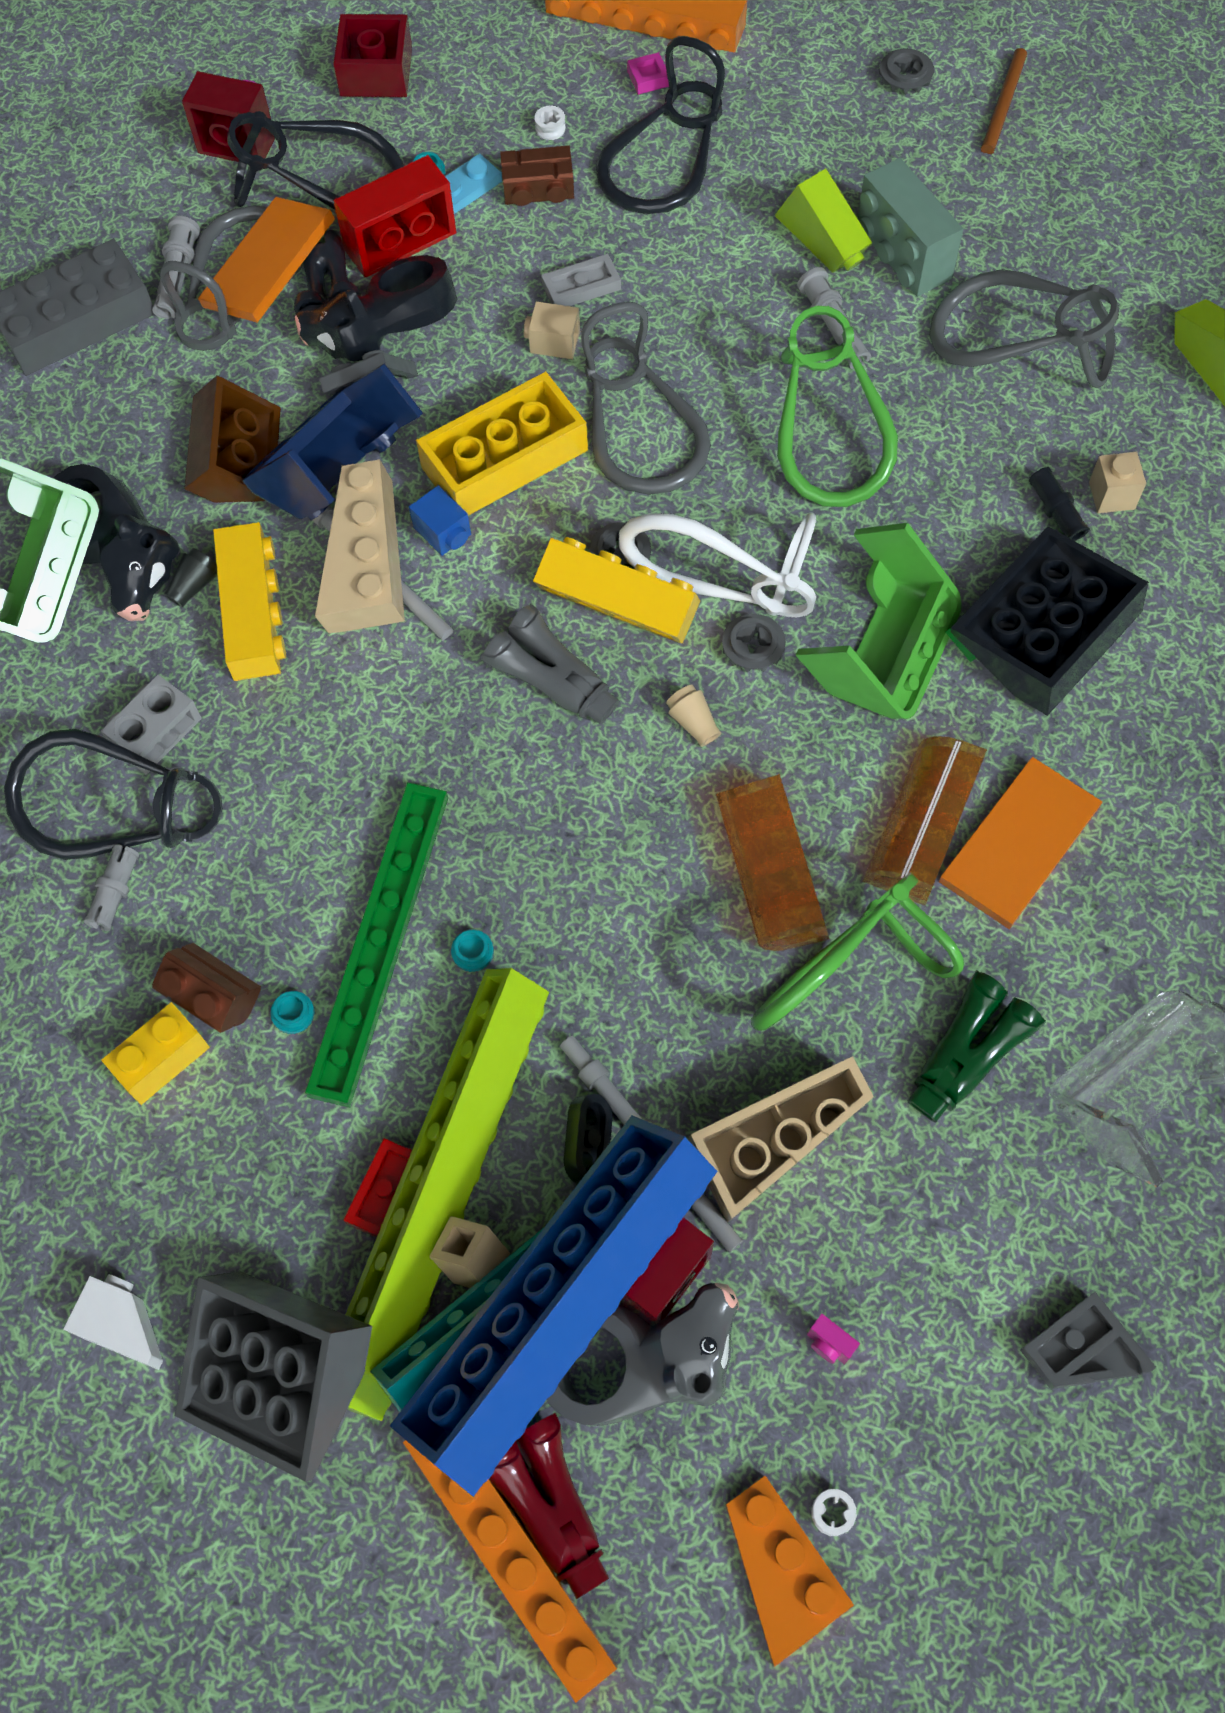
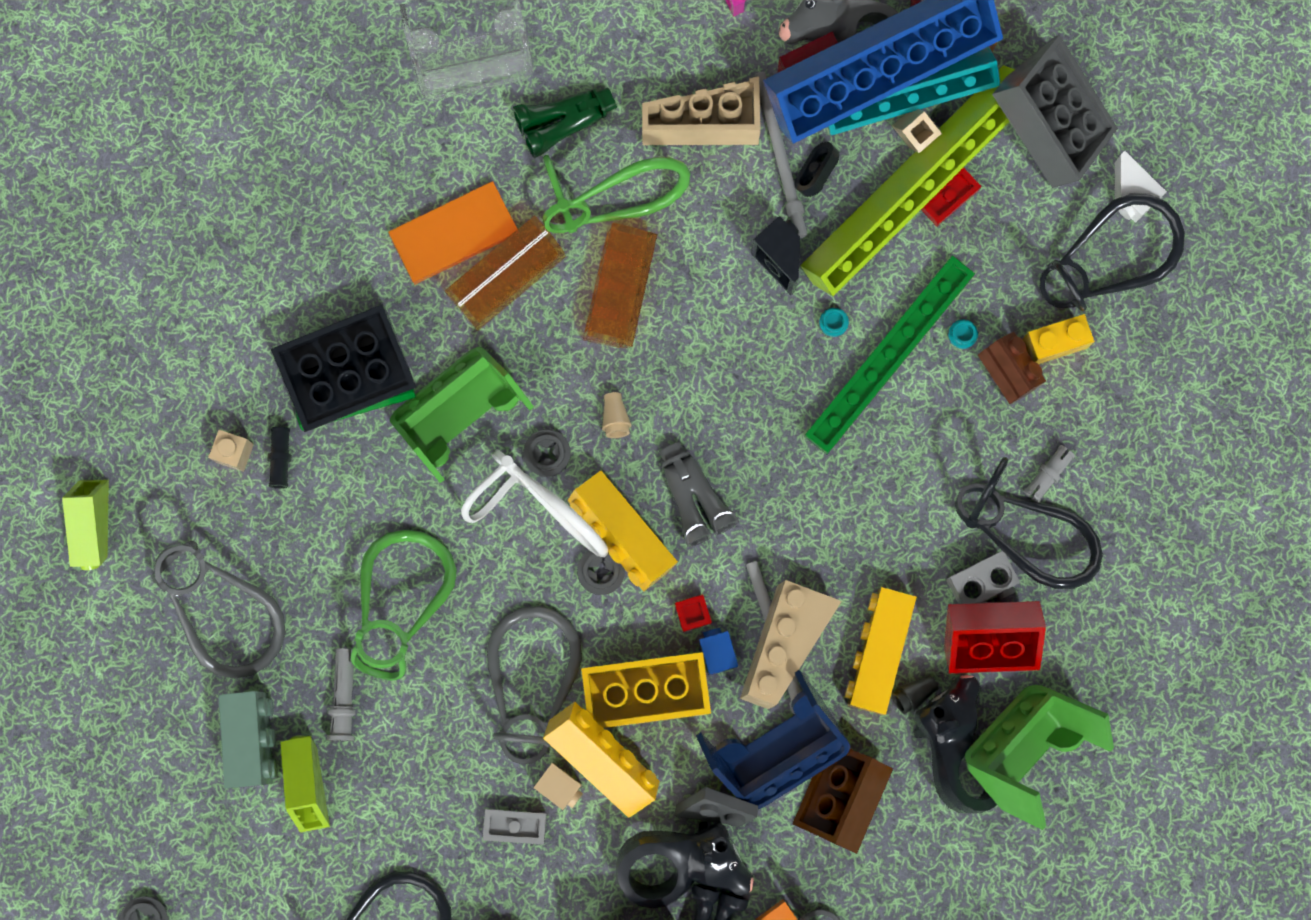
camera: 155 degrees left, 15 degrees up
(111, 658) = (994, 637): none -> red brick
(147, 1243) = (1137, 282): none -> black animal
(490, 550) = (693, 613): none -> red plate
(517, 350) = (602, 759): none -> yellow brick
(584, 987) = (778, 252): none -> black slope
(1004, 101) = (85, 850): dark orange bar -> none

